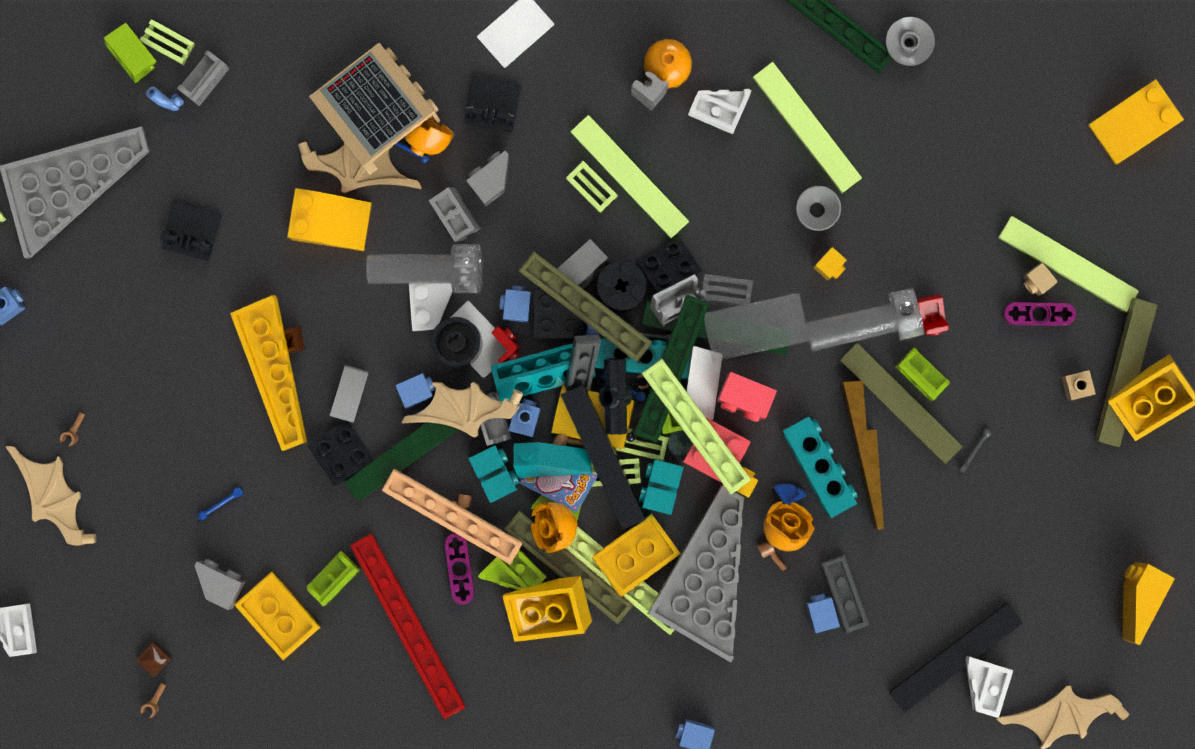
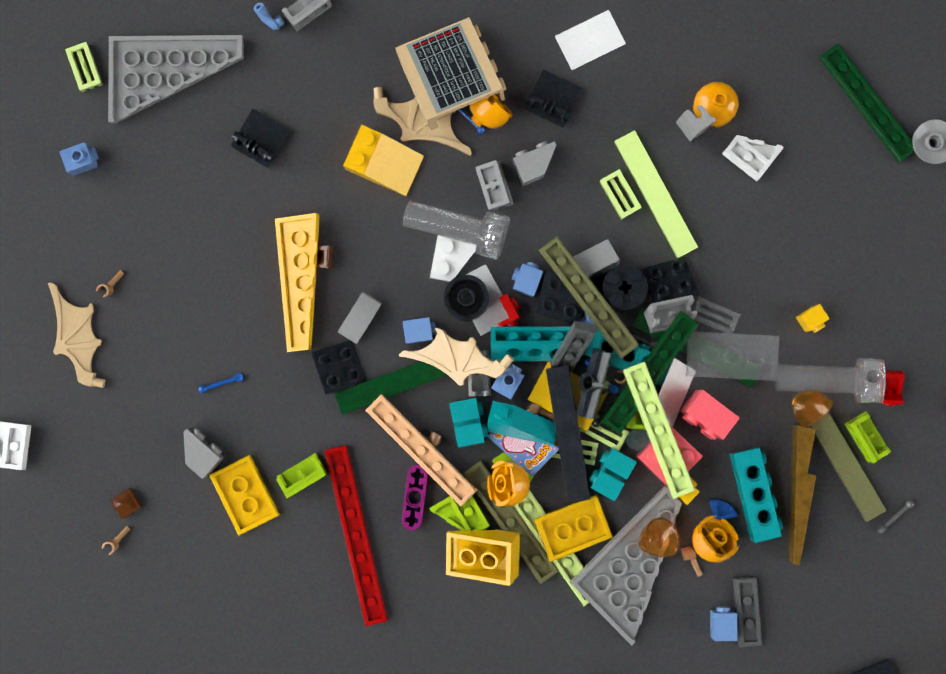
camera: 15 degrees right, 0 degrees up
(728, 540) = (659, 538): none -> clear orange helmet
(807, 127) = (823, 193): yellowish green tile -> none
(827, 199) = (826, 264): light grey piece -> none
(851, 358) = (810, 406): none -> clear orange helmet

